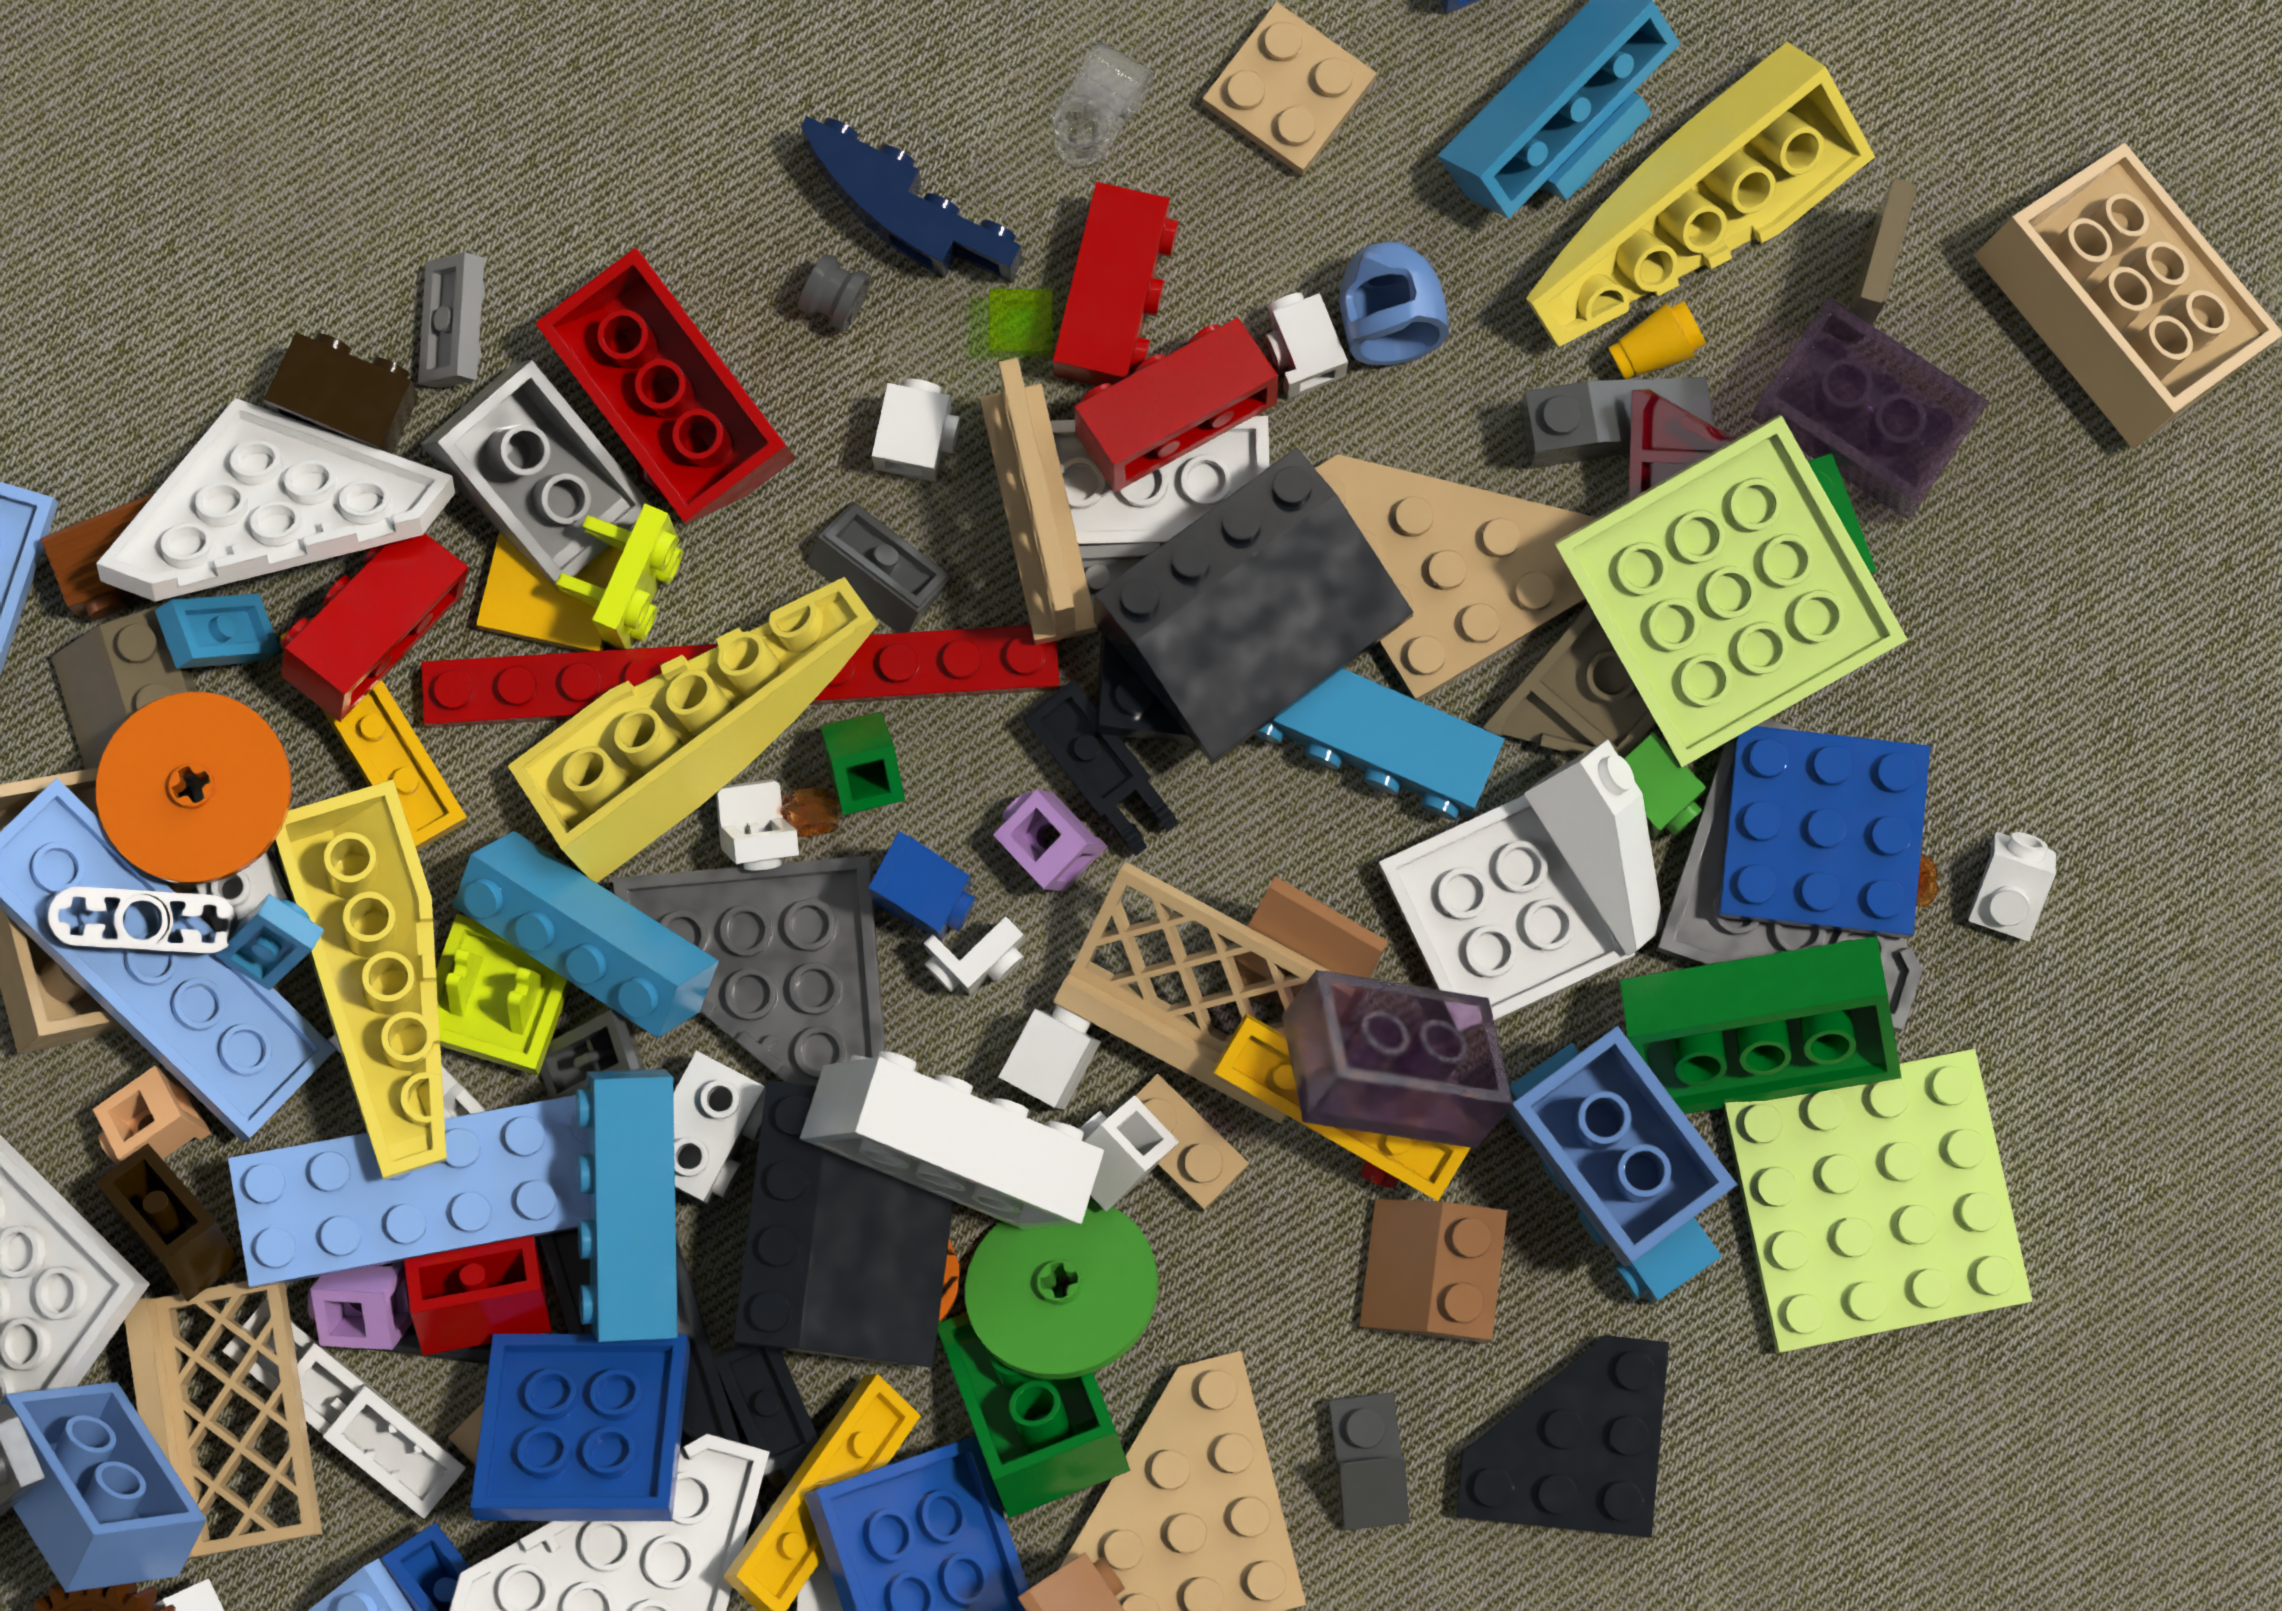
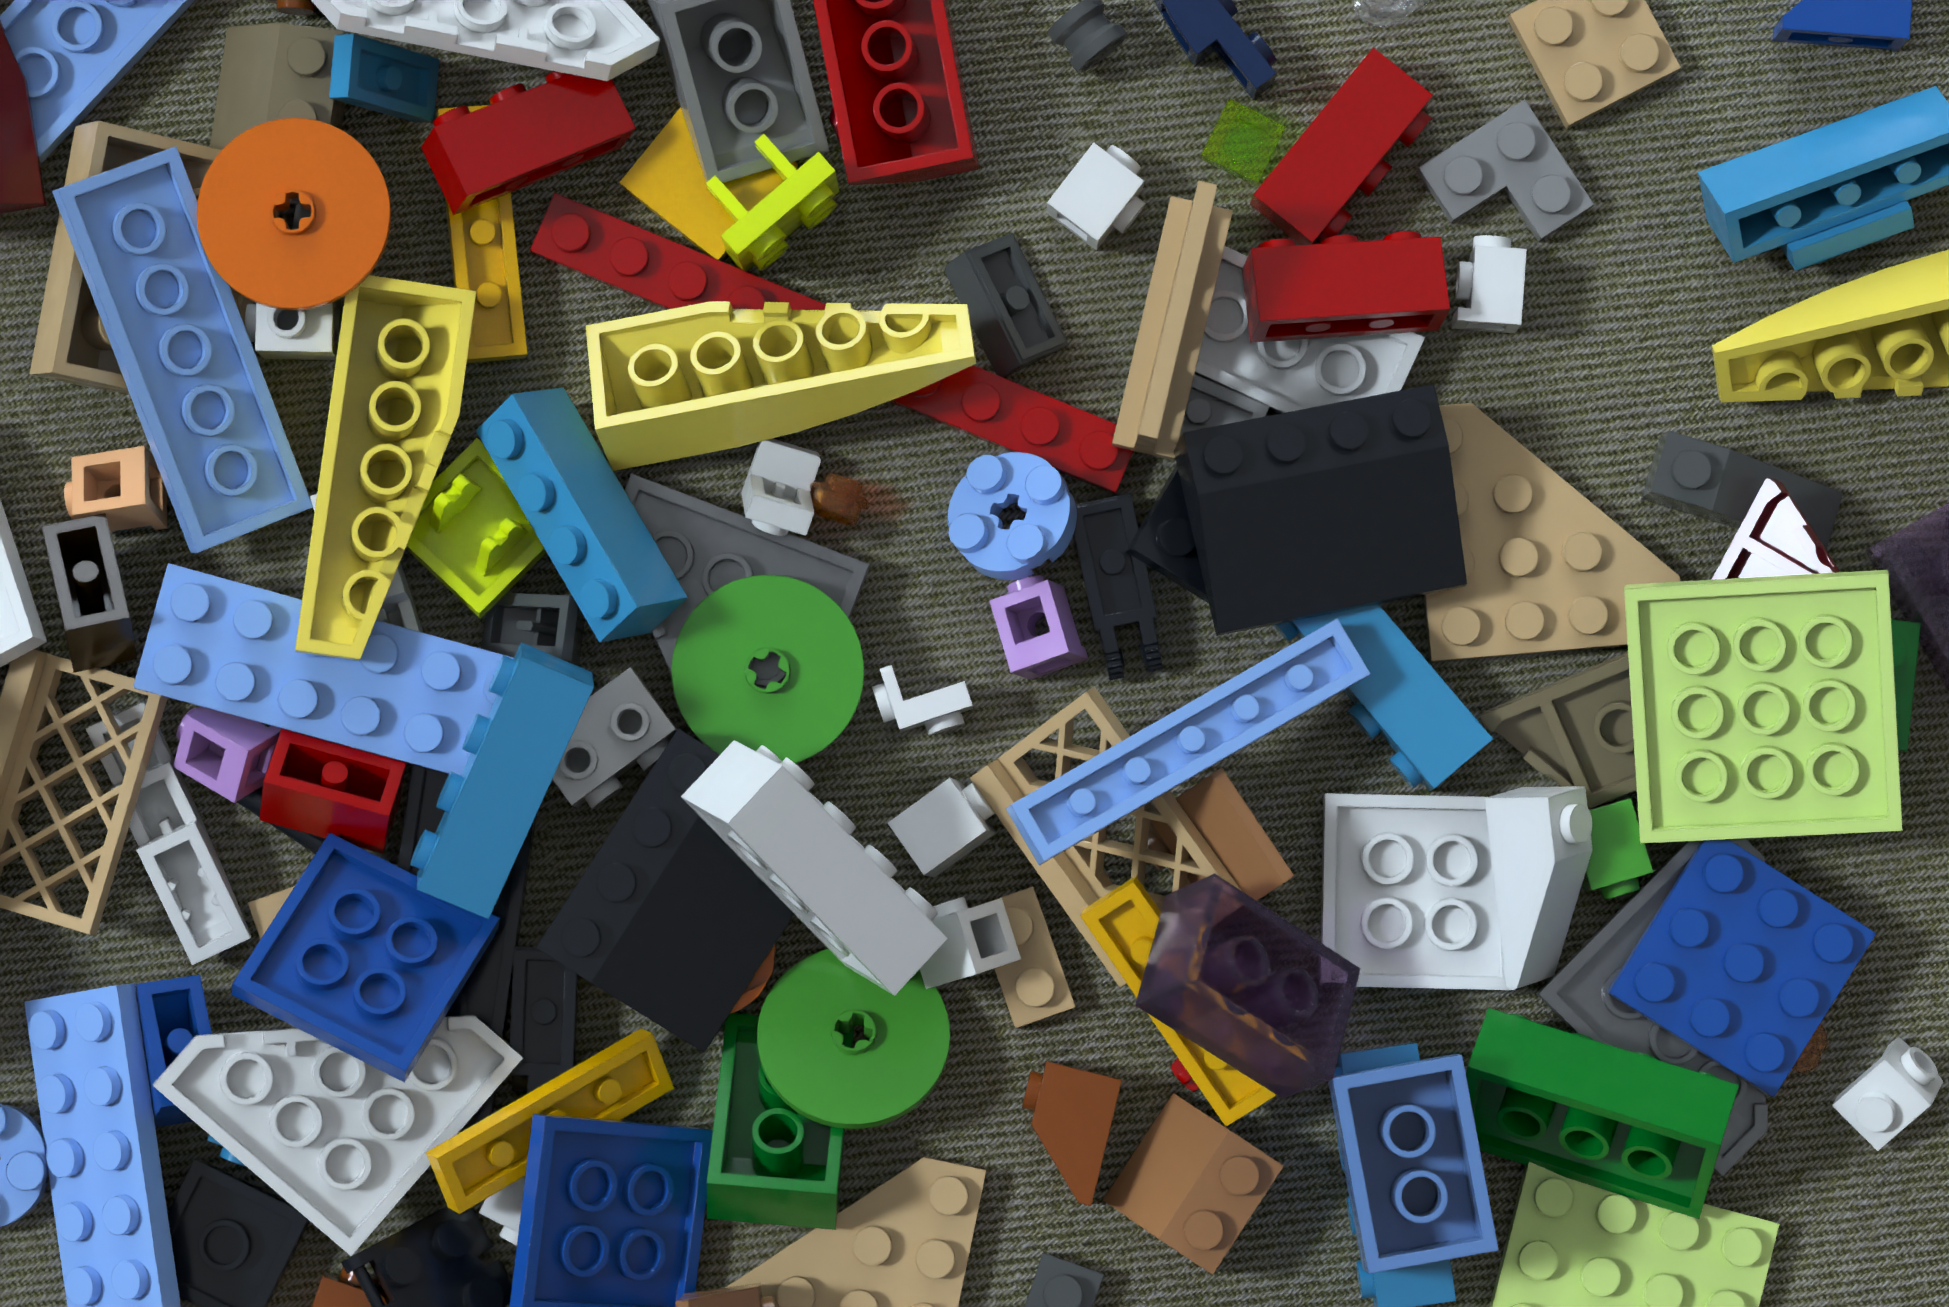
camera: 30 degrees right, 5 degrees up
(93, 900) = (155, 275): beam -> none
(271, 941) = (297, 386): dark azure plate -> none
(787, 957) = (749, 623): none -> bright green piece
(862, 763) = (903, 478): green brick -> none
(922, 888) = (903, 619): blue slope -> none
(948, 729) = (992, 486): none -> light blue plate
(1233, 868) = (1187, 741): none -> light blue plate
(1269, 222) = (1509, 156): none -> light grey plate
(1298, 1267) = (1073, 1121): none -> dark orange slope
(1392, 305) = (1587, 290): medium blue piece -> none
(1658, 341) = (1815, 440): yellow cone -> none

